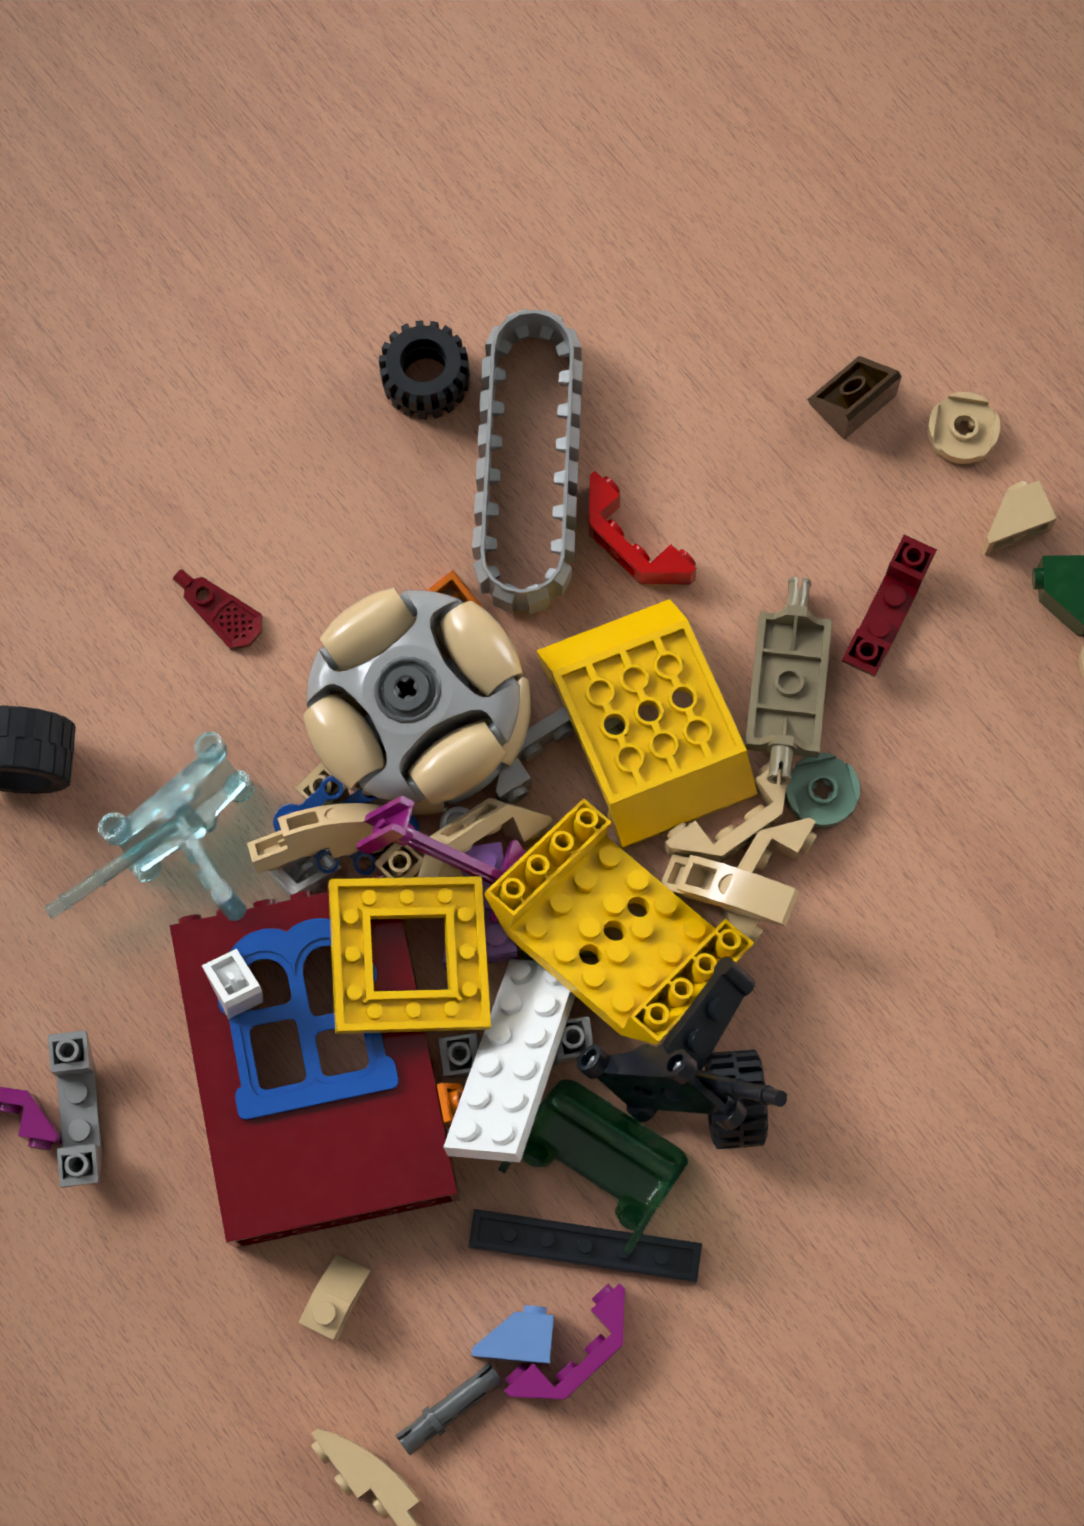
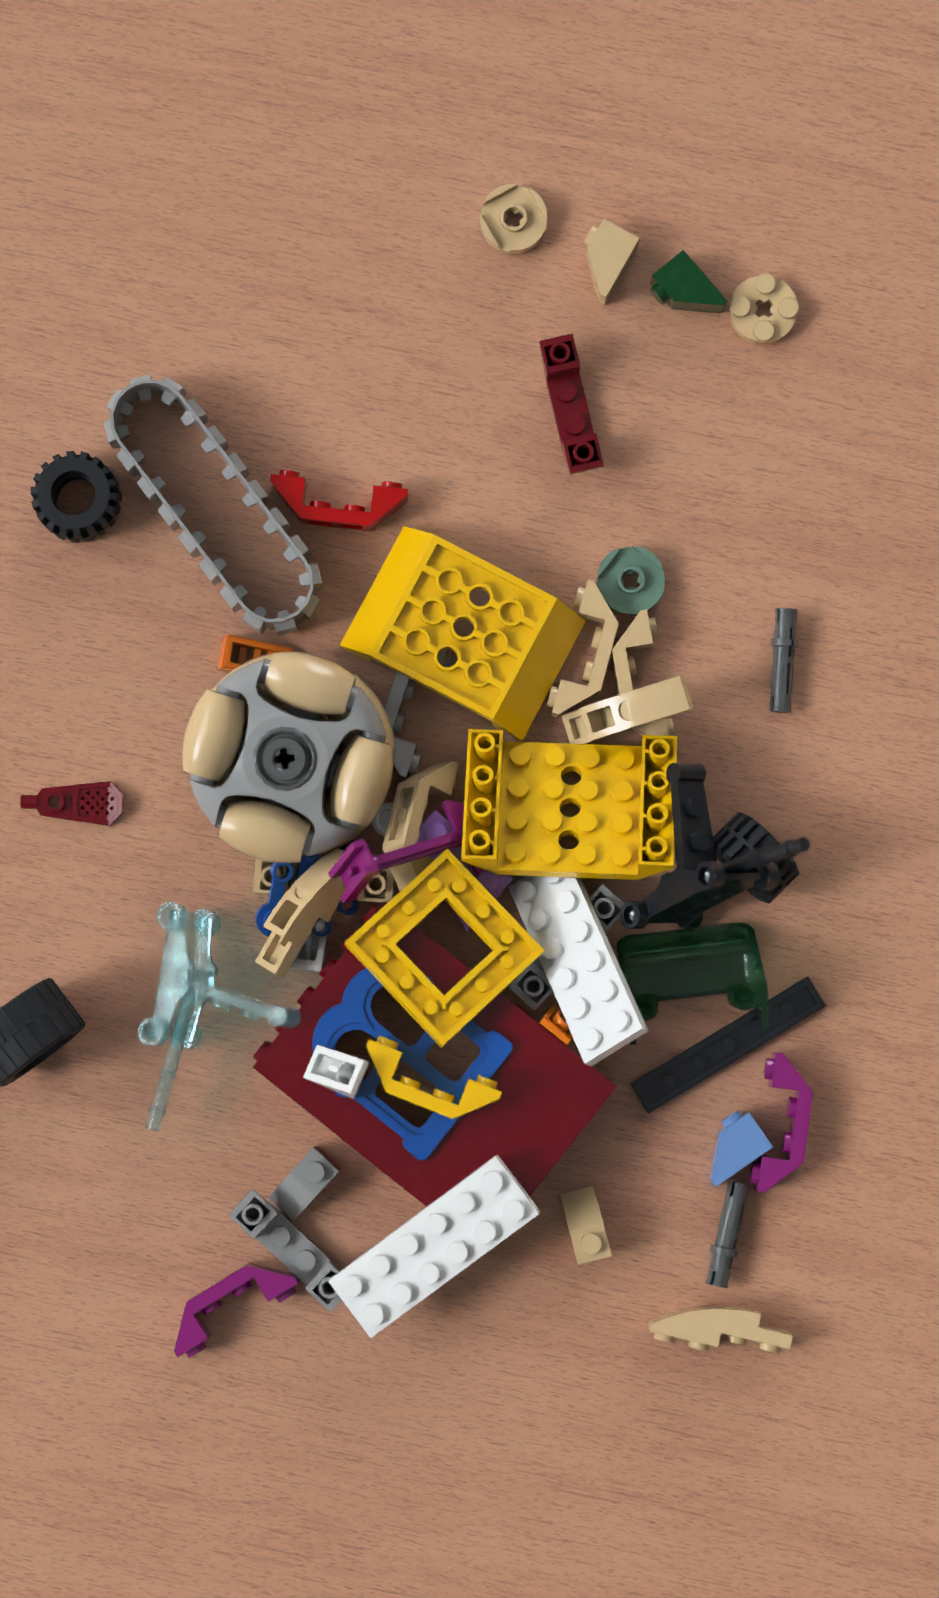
camera: 40 degrees left, 10 degrees up
(135, 1064) = (304, 1183): none -> light grey slope
(190, 1199) = (434, 1246): none -> white plate
(278, 1010) = (386, 1062): none -> yellow slope
(789, 683) = (543, 520): dark tan plate -> none
(855, 394) = (411, 256): dark brown slope -> none
(905, 951) = (783, 658): none -> dark grey pin

